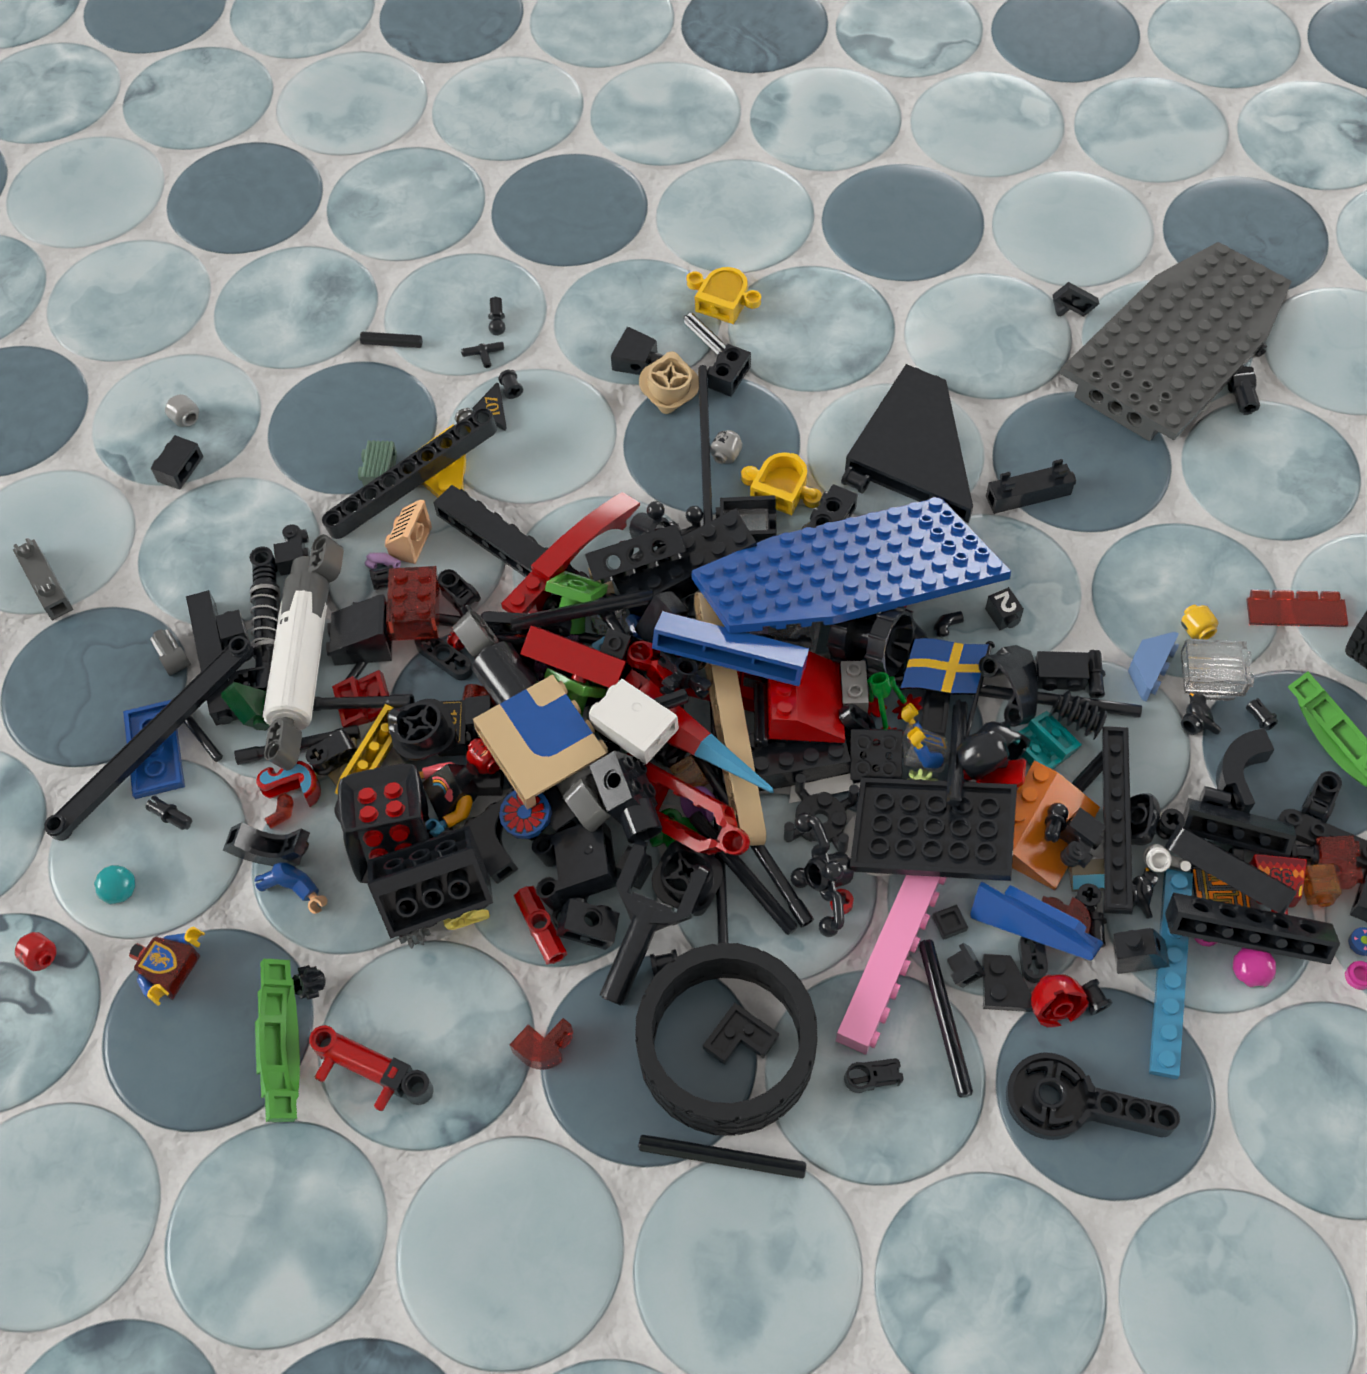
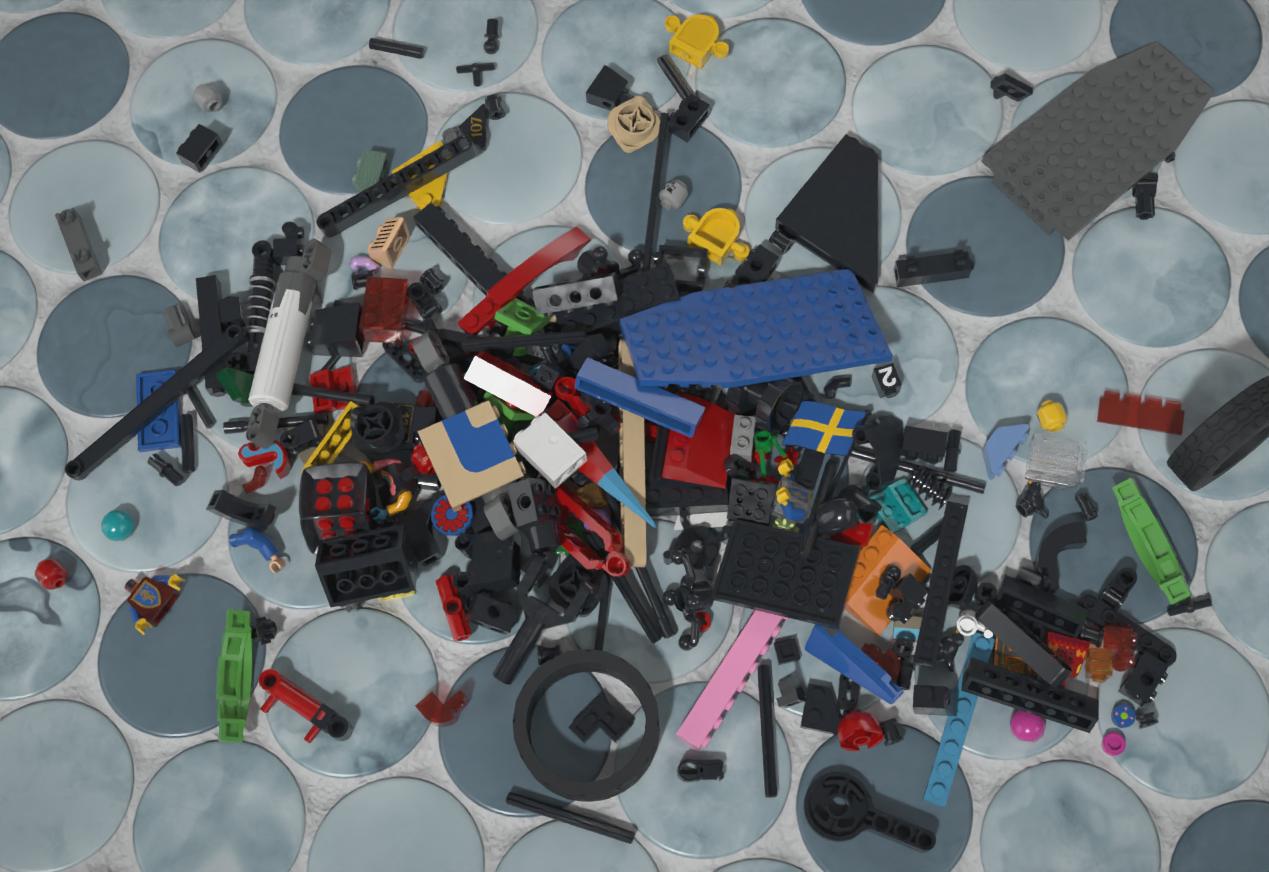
camera: 10 degrees right, 10 degrees up
(192, 780) = (187, 443): none -> black axle
(465, 568) = (432, 281): none -> black bush

